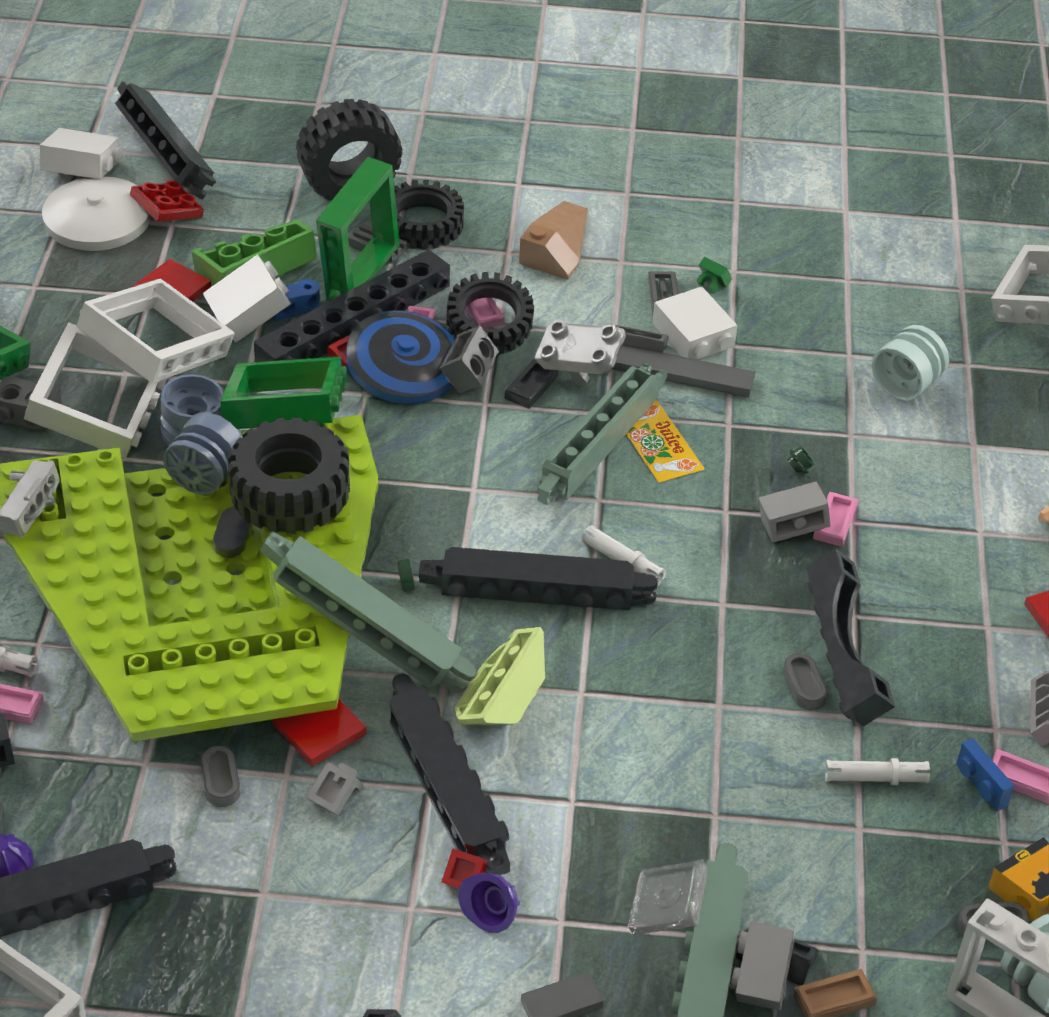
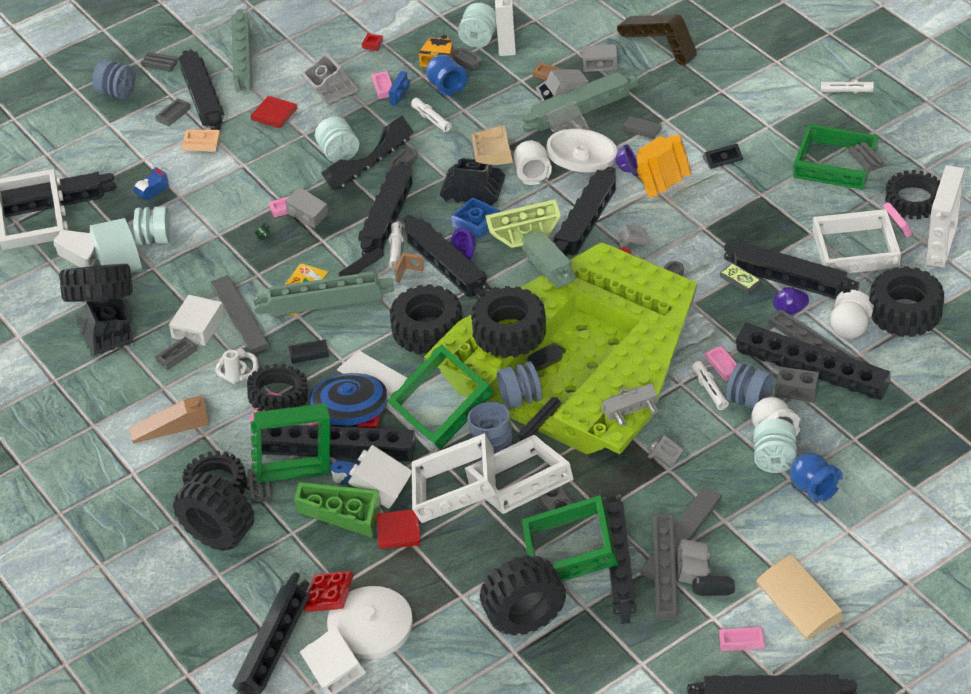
camera: 125 degrees left, 0 degrees up
(98, 836) = (740, 278): none -> tile
(153, 469) = (540, 418): none -> black axle
(425, 918) = (662, 164): none -> light orange slope
(437, 505) = (421, 303): none -> black tyre
(444, 412) = (366, 365): none -> white sticker
(461, 866) = (624, 178): red plate -> none
(469, 360) = (325, 368): dark grey brick -> none
(536, 609) = (464, 242): none -> dark purple piece
(564, 300) = (232, 365): none -> white piece
(571, 531) = (404, 263): none -> medium nougat bracket
(576, 858) = (581, 150): none -> white dish
(577, 655) = (472, 217): none -> blue brick
(580, 349) = (273, 328): light grey shield -> none
(622, 782) = (531, 162): none -> white tile
(629, 509) = (363, 262): none -> black axle
(645, 339) = (235, 342): dark grey tile -> none
(656, 703) = (472, 180): none -> black slope
(701, 760) = (492, 146): none -> tan slope
(711, 592) = (386, 208): none -> black hinge
(713, 272) = (144, 339): green tile -> none
(774, 255) = (105, 325): none -> black slope
(852, 238) = (95, 282): none -> black tyre
(892, 312) = (115, 244): none -> light aqua slope
(907, 614) = (336, 139): none -> light aqua wheel
(946, 305) = (76, 248): none -> white slope
(957, 833) = (446, 74): none -> blue tile
(1015, 418) = (152, 184): none -> blue leg

